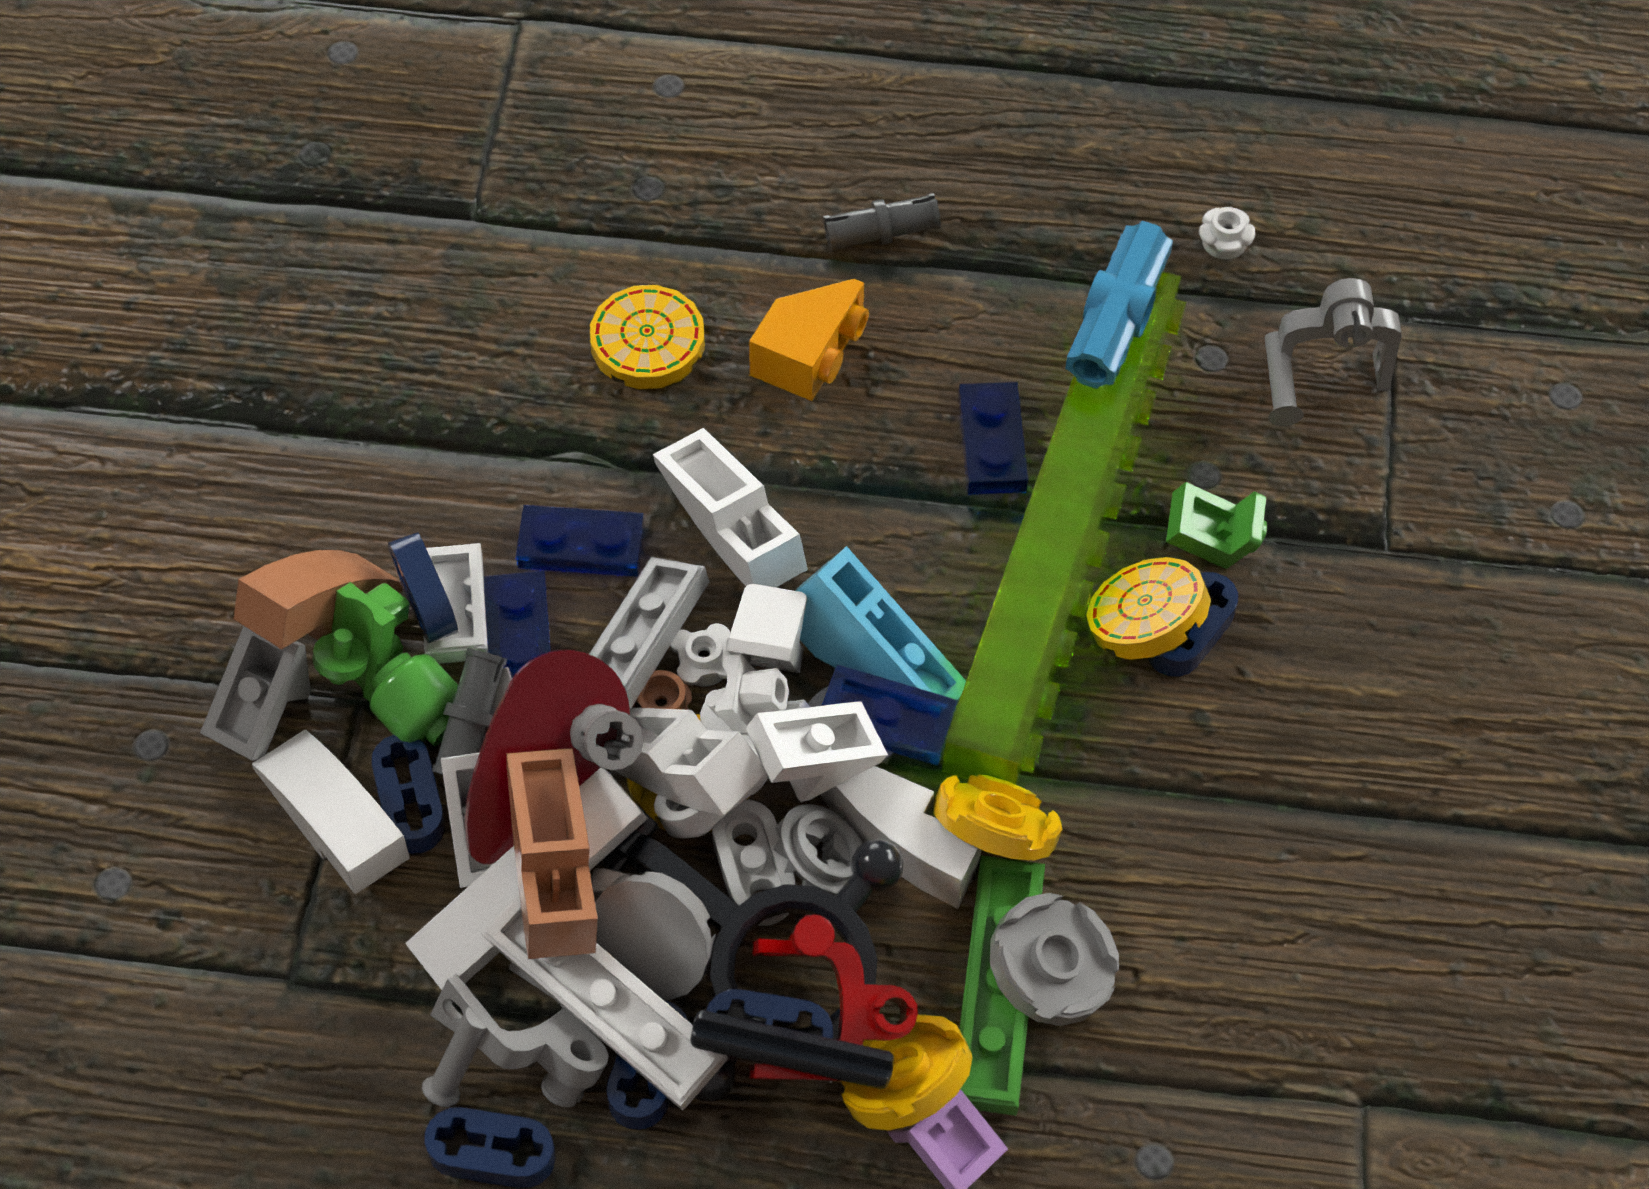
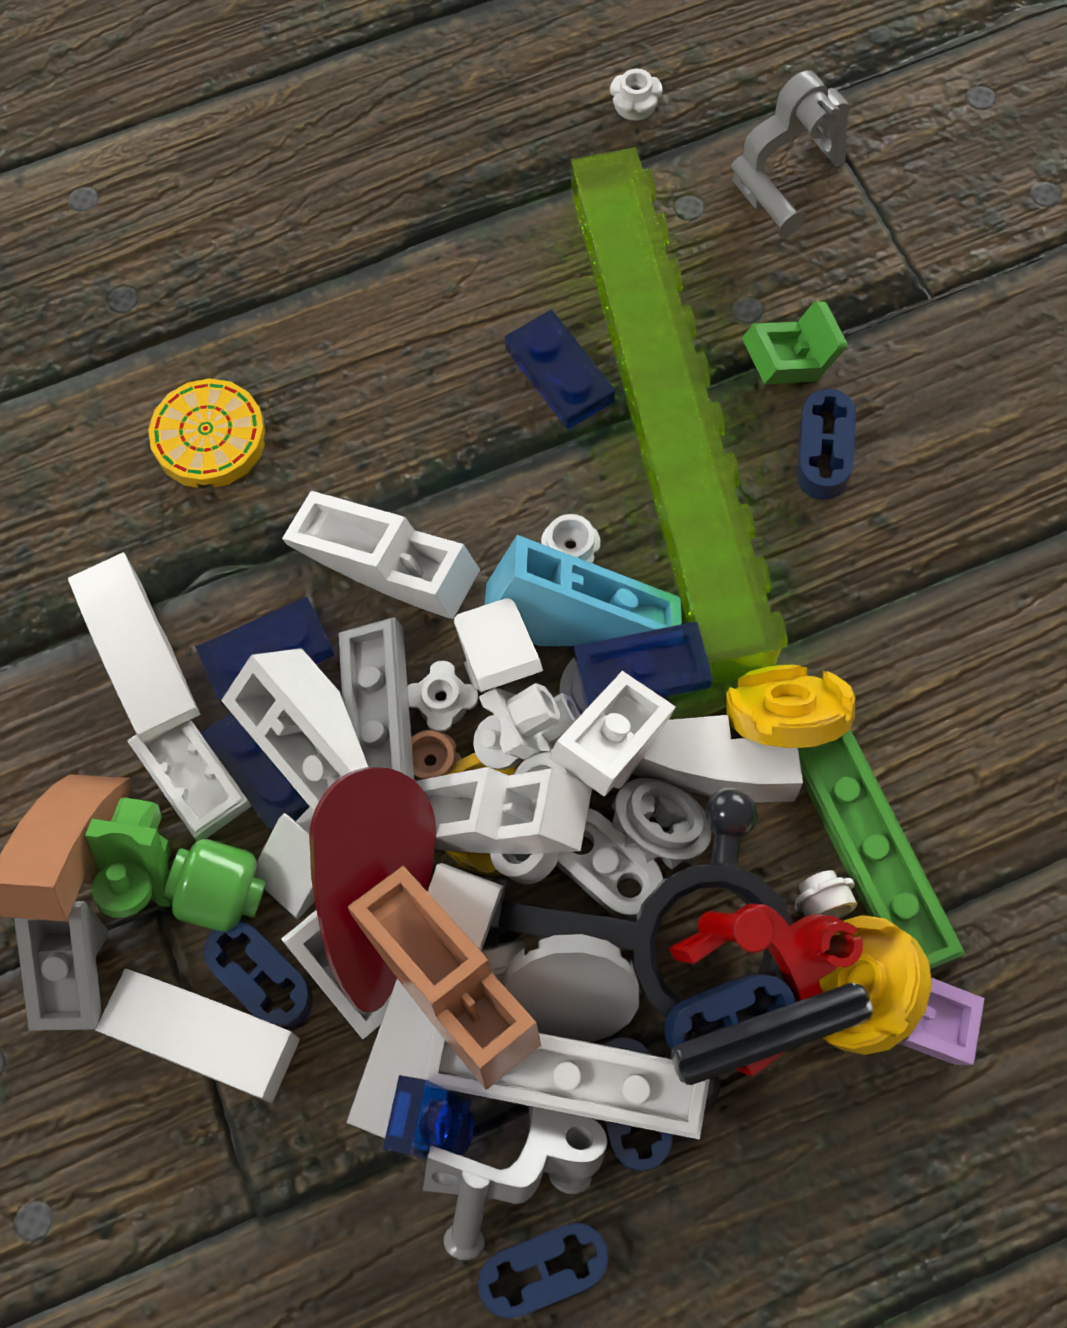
camera: 25 degrees left, 10 degrees up
(423, 587) = (158, 779): dark blue beam -> none
(468, 949) = (426, 1117): none -> clear blue plate
(471, 475) = (133, 647): none -> white slope
(471, 706) = (275, 872): dark grey pin -> none
(566, 593) = (296, 720): none -> white slope
(616, 753) = (427, 836): light grey bush -> none
(806, 335) = (348, 364): light orange slope -> none
(882, 222) = (348, 227): dark grey pin -> none
(907, 575) = (576, 529): none -> white plate
(929, 990) = (826, 895): none -> white plate
(1054, 959) = (911, 805): light grey tile -> none
(1119, 305) = (608, 196): dark azure piece -> none
(1148, 607) = (791, 449): yellow tile -> none

